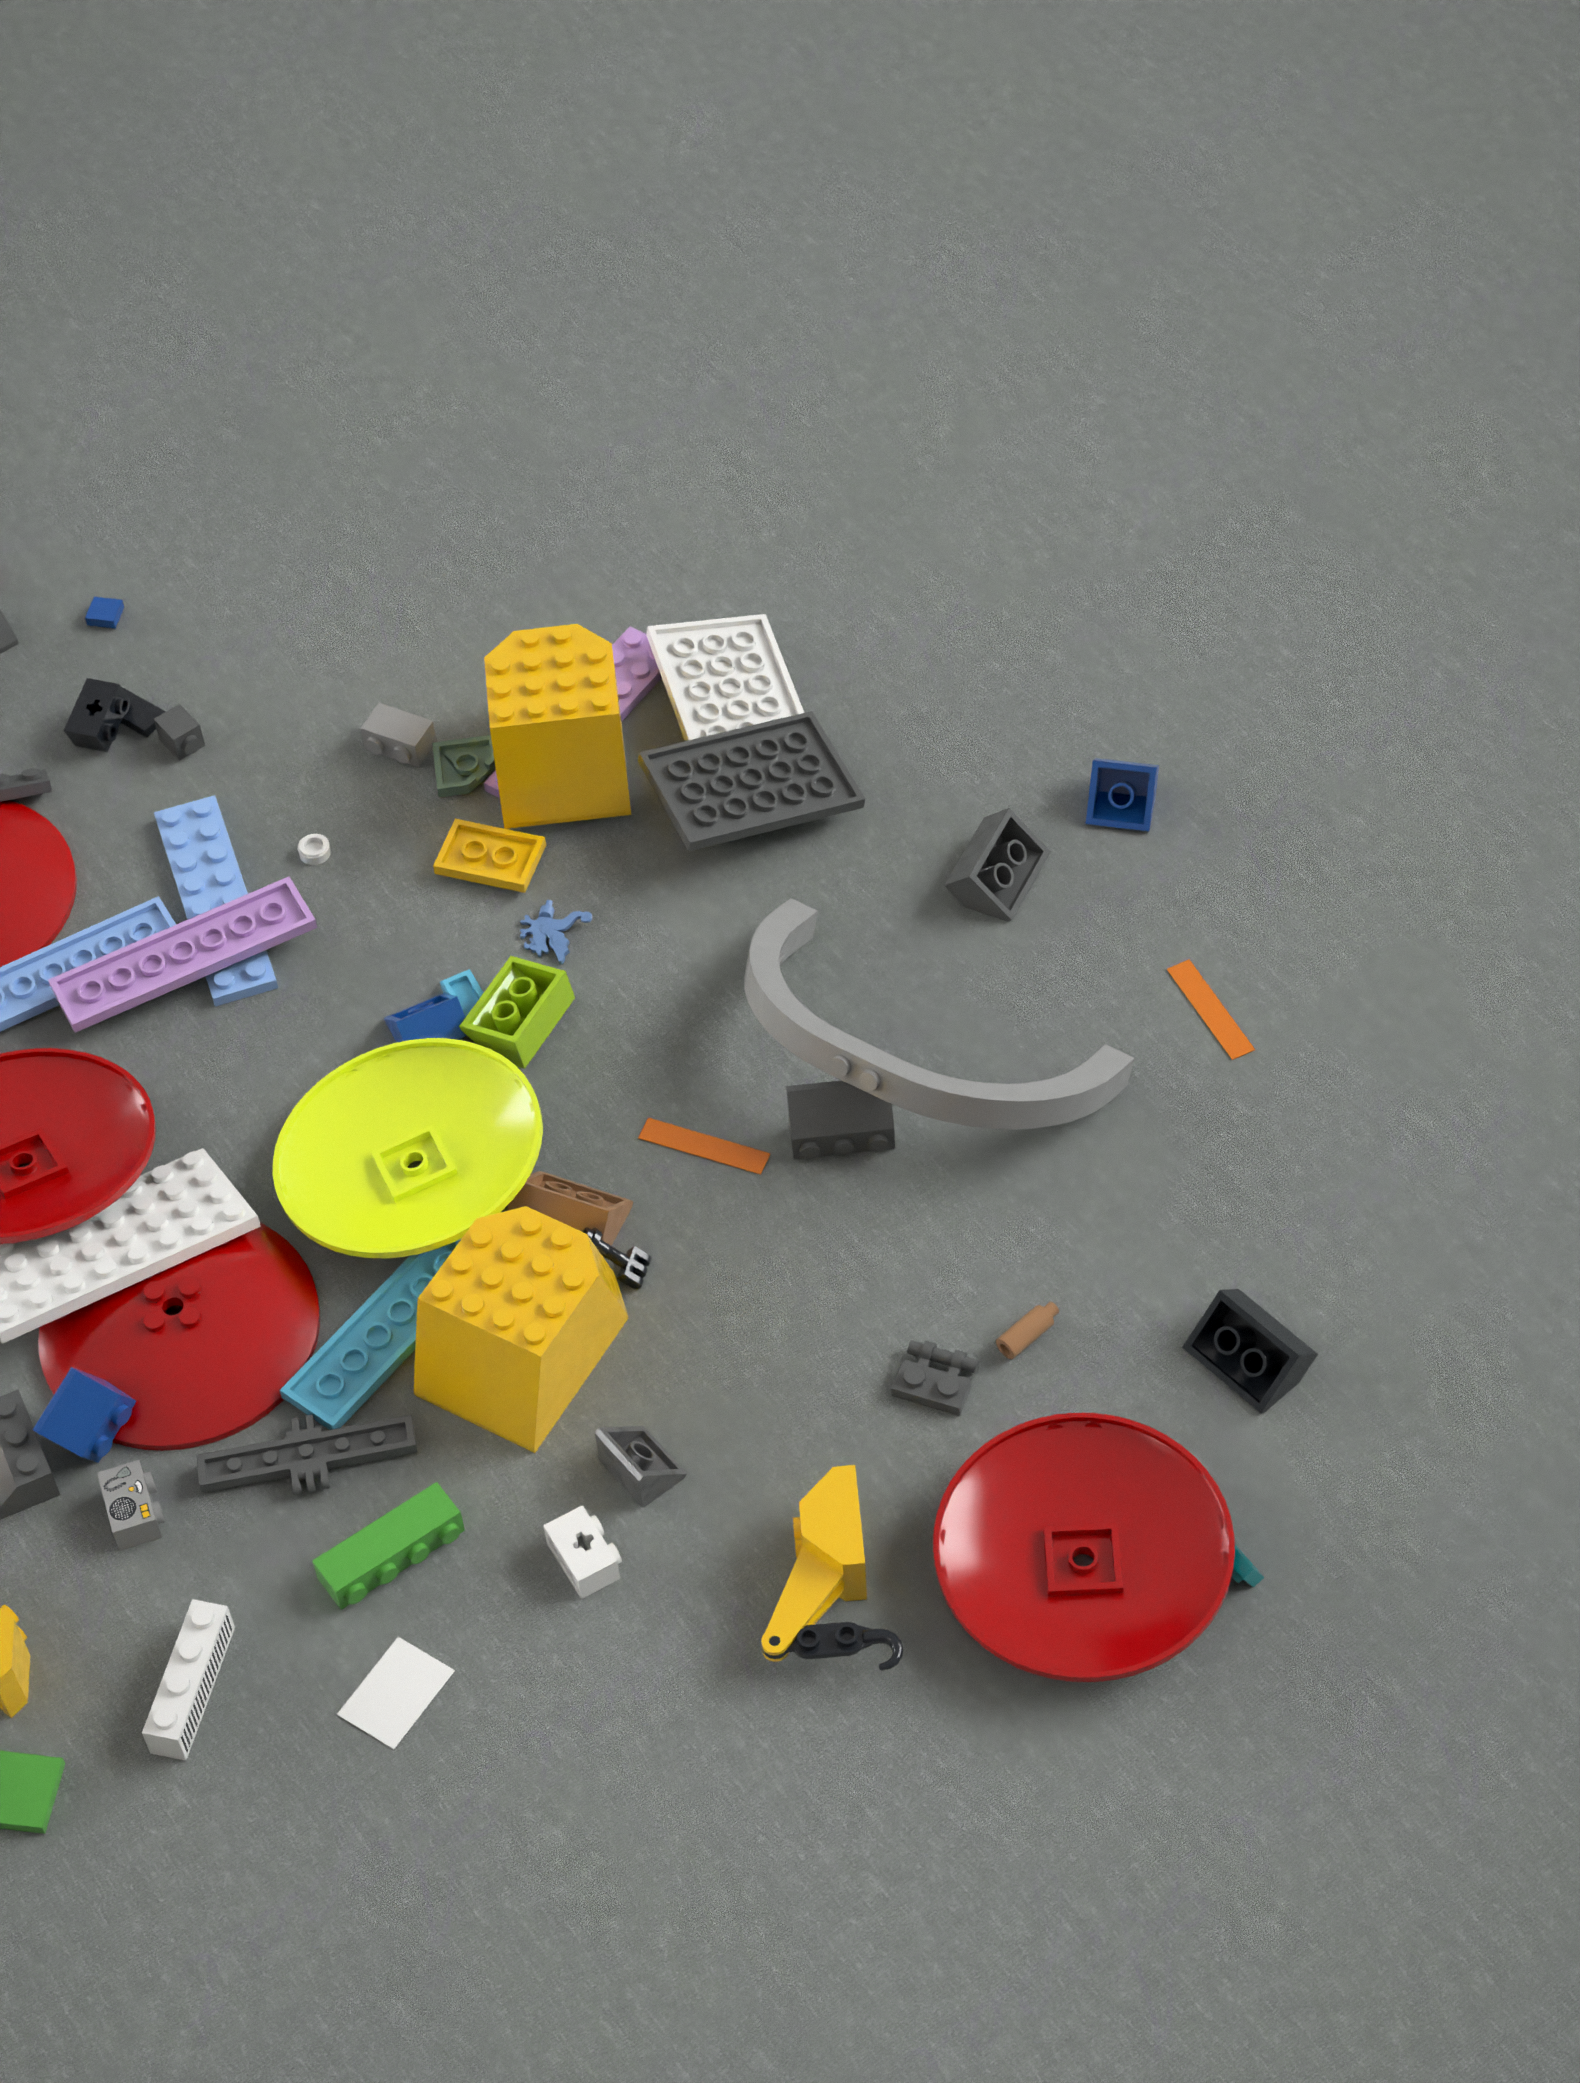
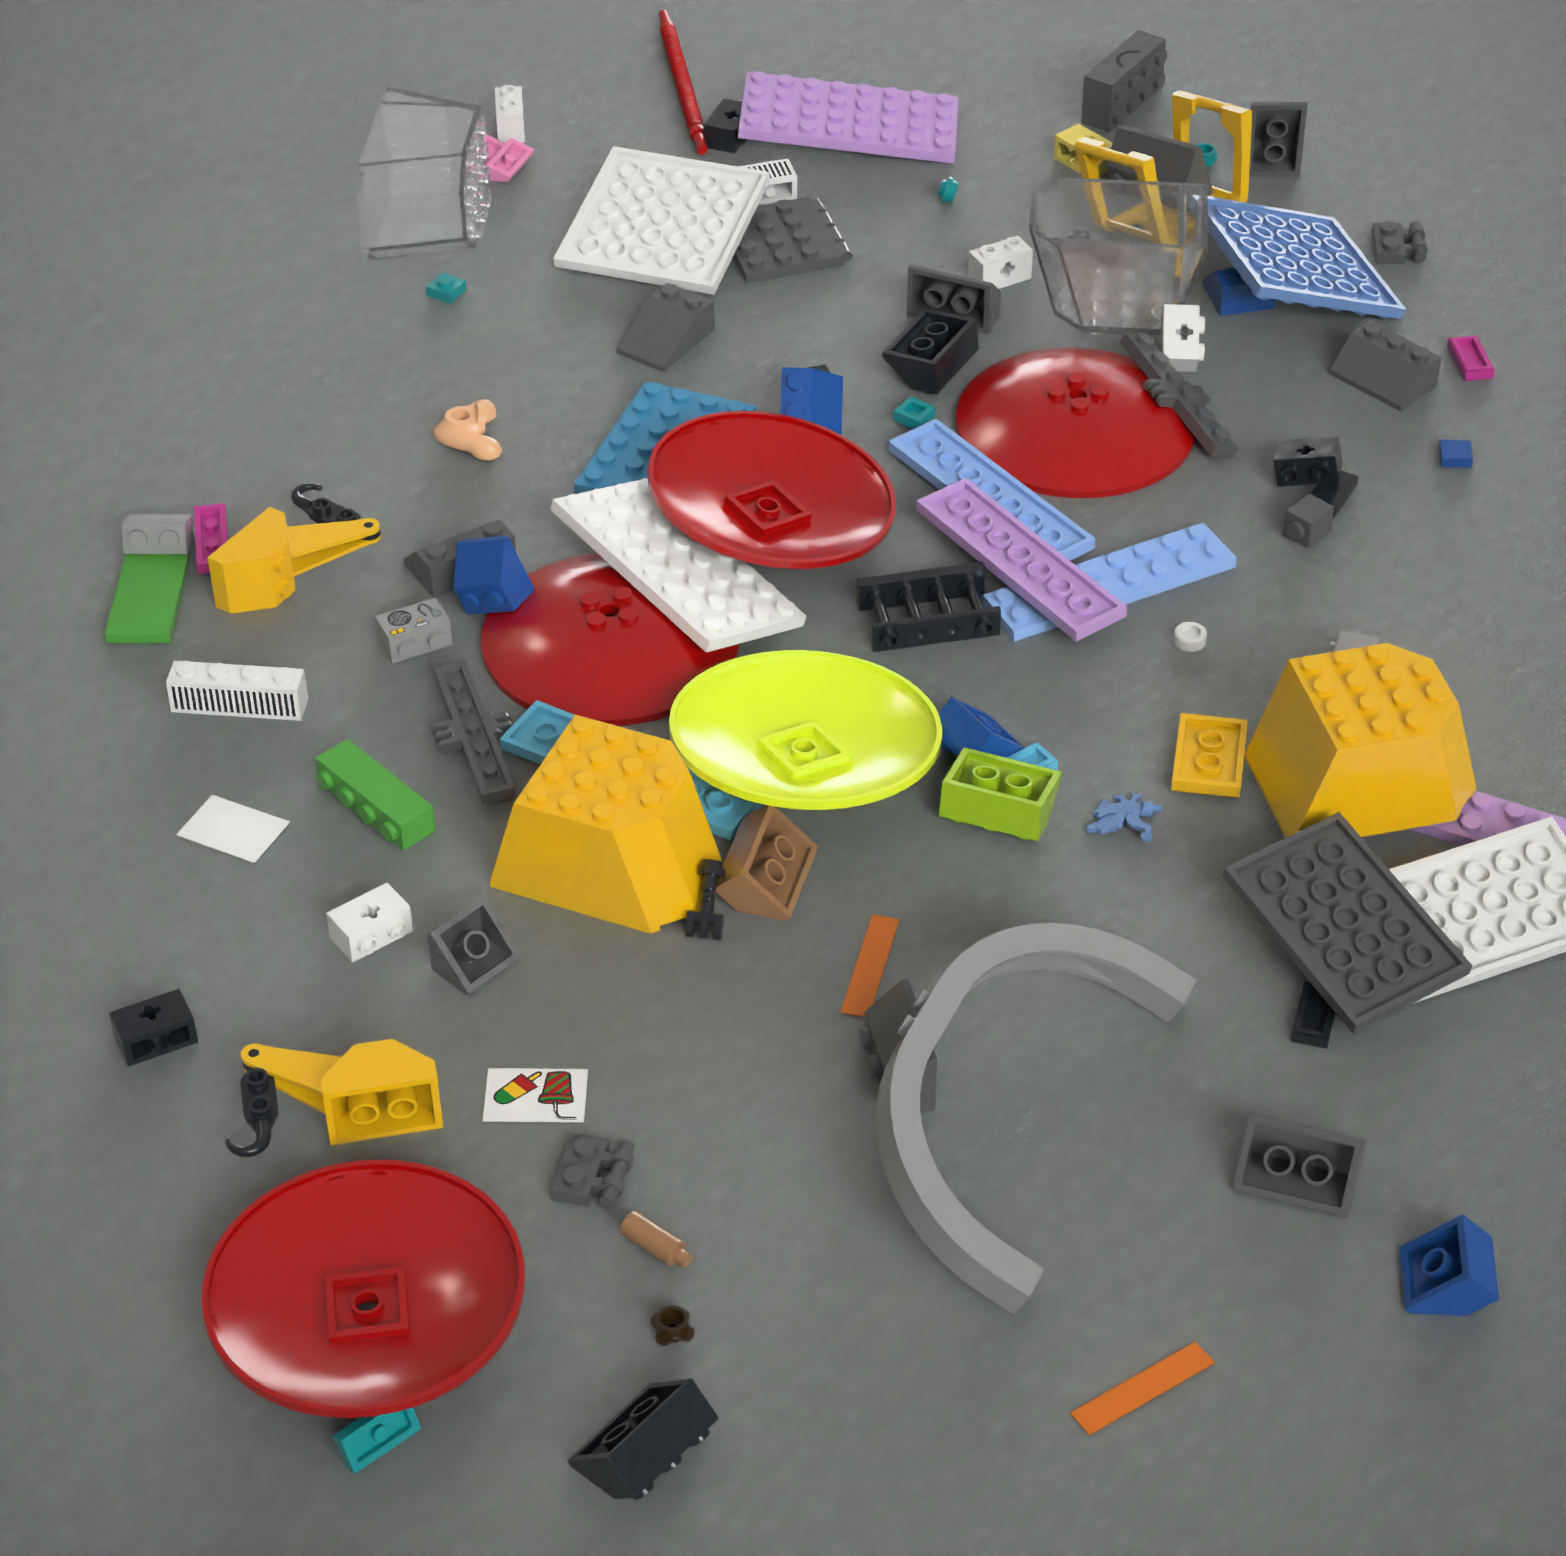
camera: 80 degrees right, 10 degrees down
(192, 1032) = (925, 586): none -> black fence
(709, 1768) = (153, 1027): none -> black brick
(826, 836) = (1313, 1019): none -> black tile
(827, 1423) = (535, 1095): none -> white sticker
(1126, 1316) = (672, 1317): none -> dark brown plate

